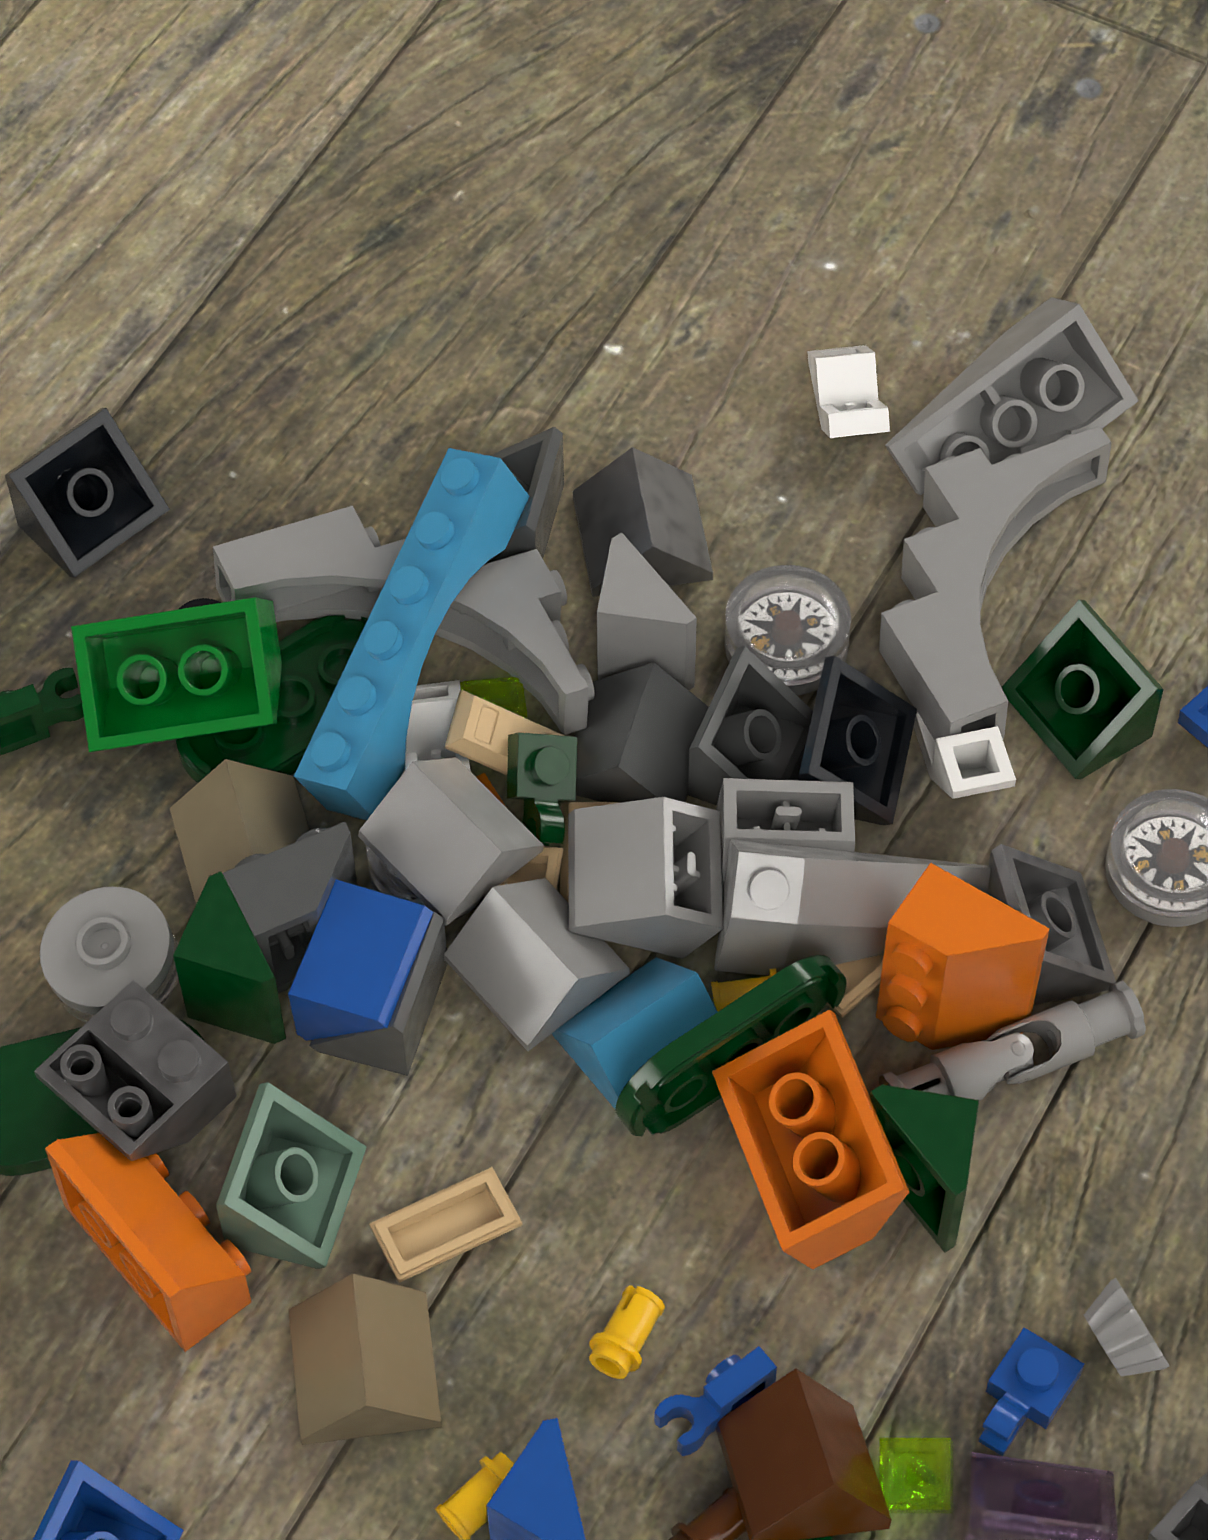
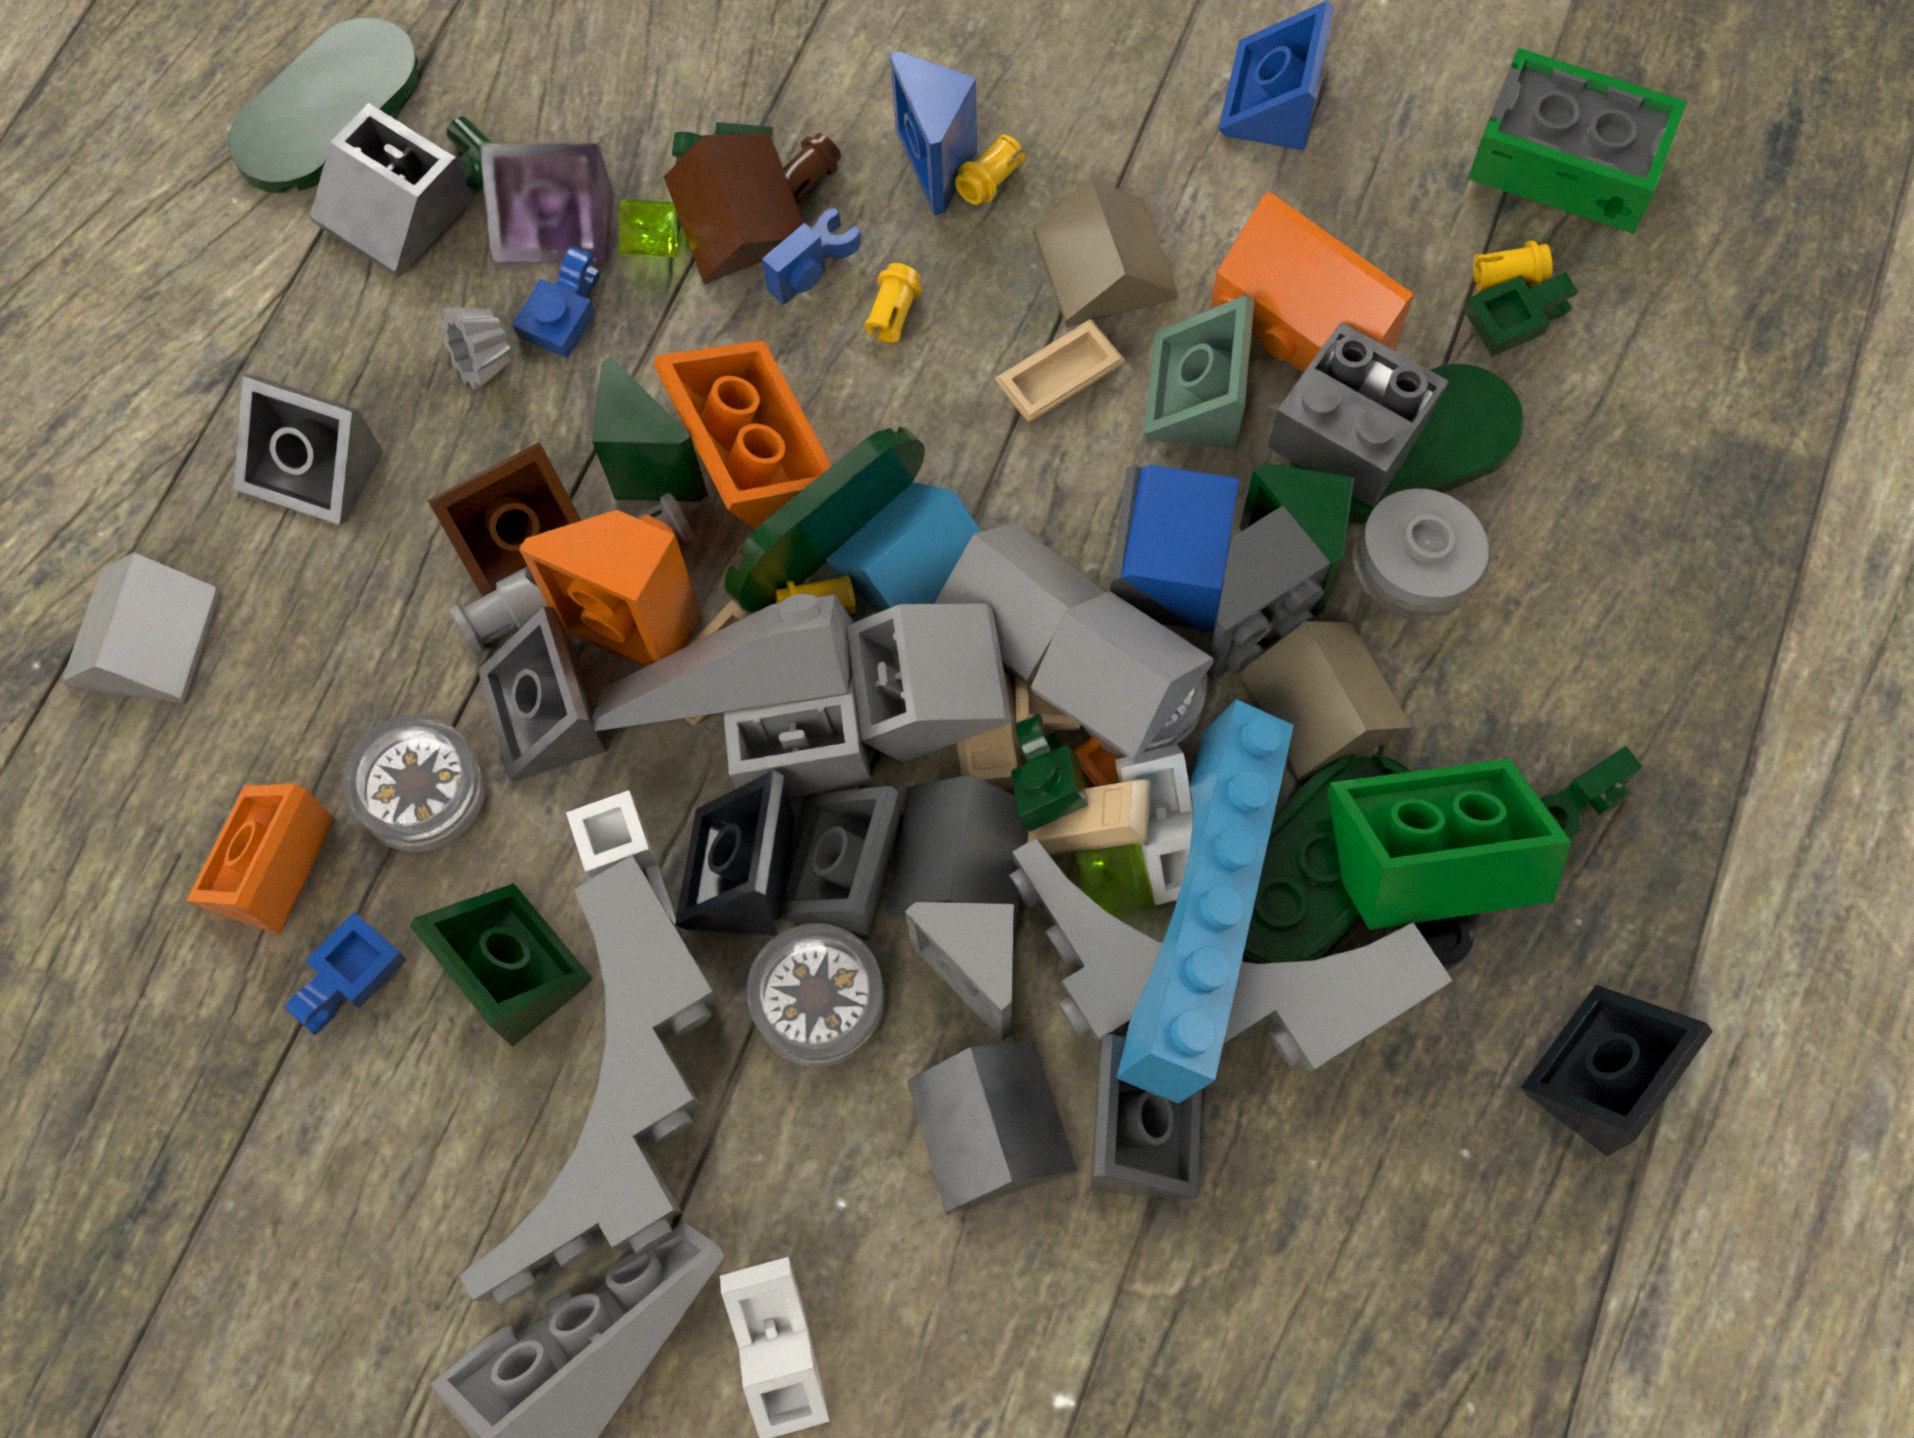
camera: 175 degrees right, 10 degrees up
(1078, 1114) = (499, 510): none -> reddish brown slope

